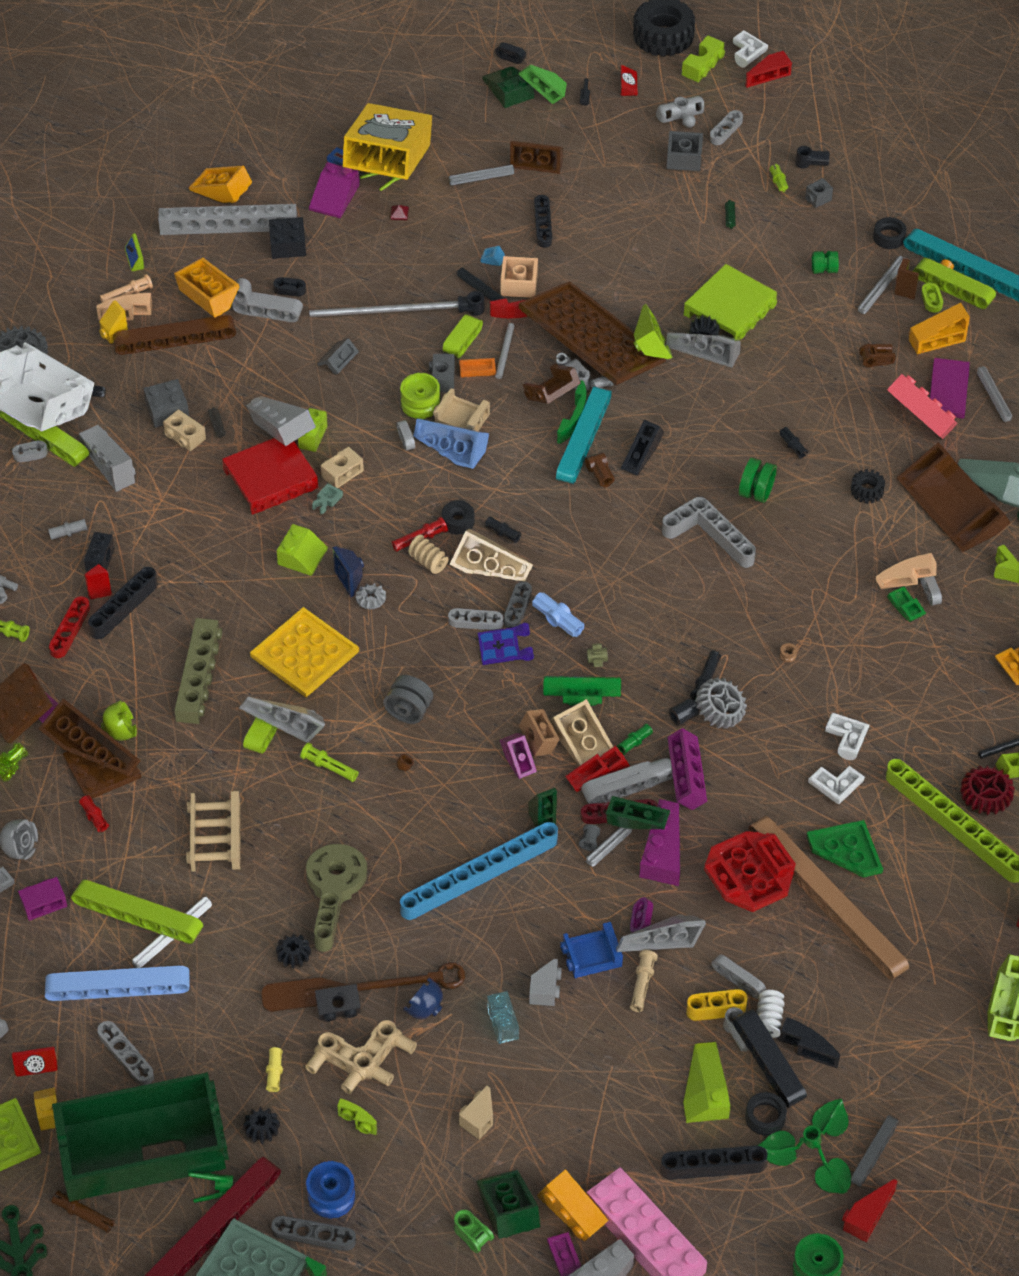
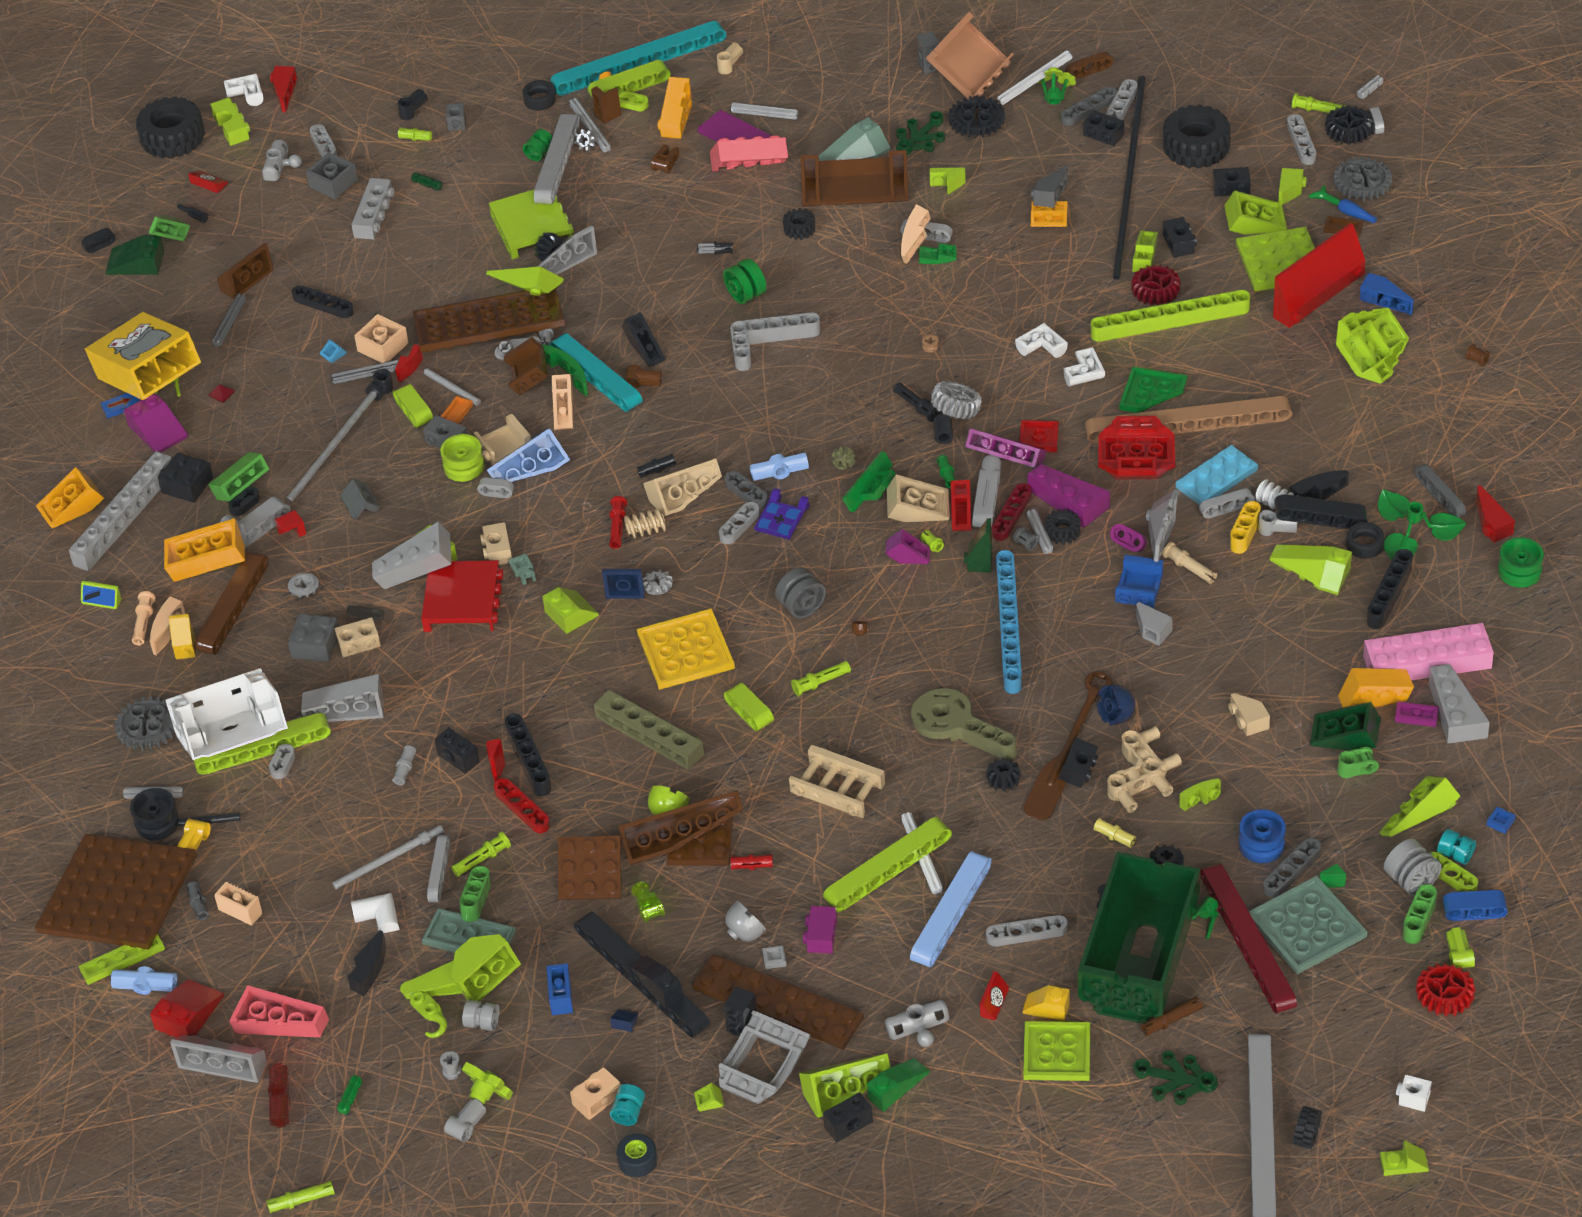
camera: 55 degrees left, 5 degrees down
(222, 363) = (310, 581): none -> light grey gear
(280, 325) = (290, 521): none -> red panel
(291, 719) = (763, 678): light grey wedge -> none
(307, 268) = (238, 476): none -> bright green brick
(458, 508) = (616, 481): black tyre -> none
(503, 1017) = (1167, 662): clear light blue brick -> none
(532, 430) = (562, 401): none -> light nougat slope
(539, 732) = (889, 518): medium nougat brick -> none
(542, 768) = (935, 544): none -> lime pin
(623, 849) = (1062, 534): none -> black tyre
(635, 815) = (1035, 493): dark green slope -> none
(669, 196) = (372, 208): none -> light grey brick
(729, 789) = (1040, 434): none -> red tile
(773, 953) = (1217, 475): none -> medium azure plate
(811, 280) = (556, 159): none -> light grey beam
(856, 289) = (584, 135): none -> light grey gear

